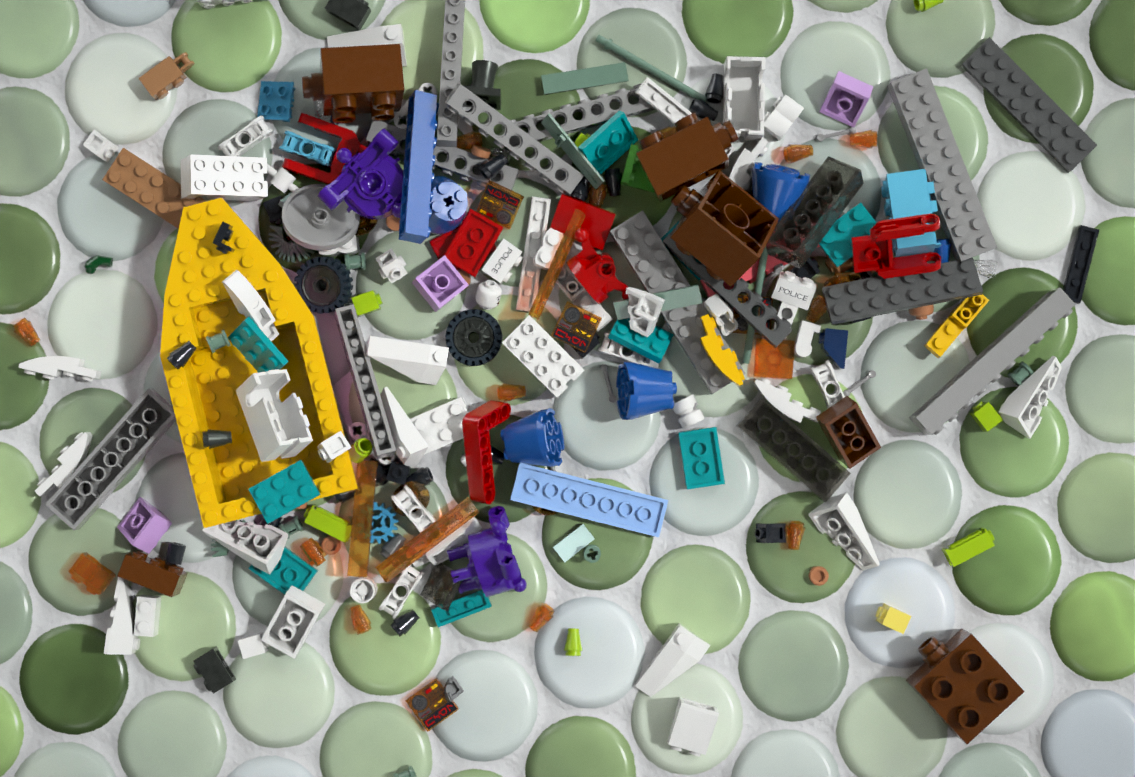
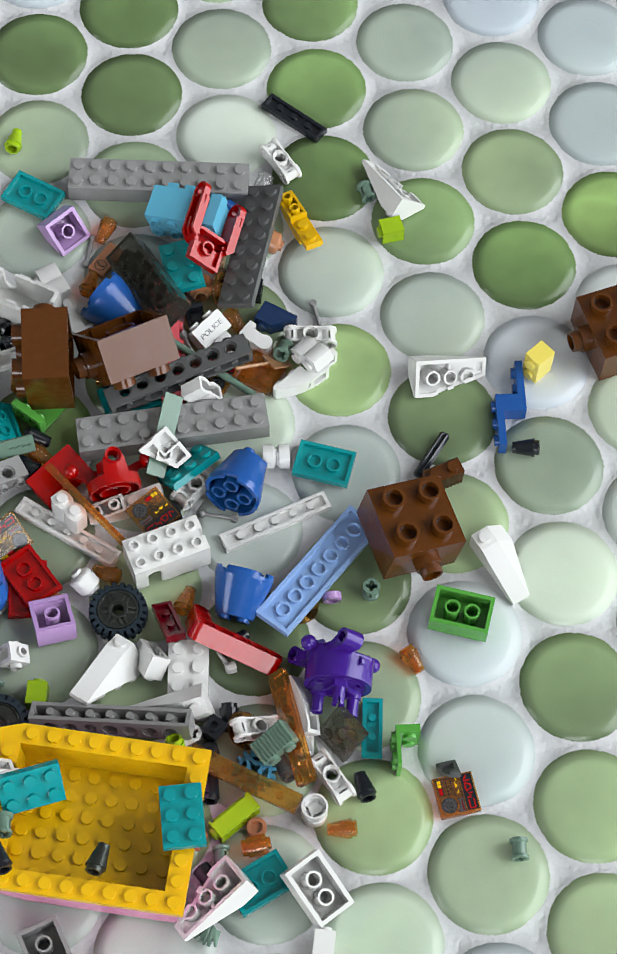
camera: 75 degrees left, 25 degrees down
(274, 425) = (111, 795): white piece -> none
(333, 447) = (160, 750): white bracket -> none
(403, 533) = (274, 743): none -> sand green brick
(438, 390) = (152, 660): none -> white arch
(462, 642) = (404, 735): none -> bright green bracket
(479, 388) = (168, 621): none -> dark red plate
(502, 262) = (60, 557): white brick -> none
(507, 310) = (107, 573): none -> clear orange cone
(570, 522) = (331, 597): none -> lavender tile
(573, 543) = (354, 603): light aqua tile -> none
(573, 643) = (451, 641): lime cone -> none
(601, 645) = (461, 613): none -> bright green brick
(625, 437) = (275, 521): none -> white tile
(660, 570) = (411, 527): none -> reddish brown brick
(692, 726) = (571, 564): white slope -> none
(722, 359) = (240, 402): yellow slope -> none
(735, 574) = (449, 472): none -> reddish brown brick
(754, 553) = (431, 454): none -> black axle
(770, 533) = (418, 434): black bracket -> none
(788, 366) = (270, 360): none -> medium nougat piece
(793, 449) = (350, 384): clear smoke brick -> none
(795, 532) = (428, 414): clear orange cone -> none
(799, 639) = (526, 447): none -> black cone
(801, 371) = (283, 347): none -> sand green bush
(804, 402) = (311, 354): none -> white brick
(818, 575) = (474, 412): nougat tile -> none
(822, 151) = (100, 264): none -> nougat tile
(836, 607) = (509, 406): none -> blue bracket
(848, 432) = (355, 331): reddish brown brick -> none
(872, 50) = (33, 195): none -> teal plate
(969, 547) = (499, 284): lime window -> none
(992, 361) = (346, 206): light grey brick -> none
(1027, 262) = (273, 153): none -> white piece
(1029, 105) = (141, 104): dark grey plate -> none

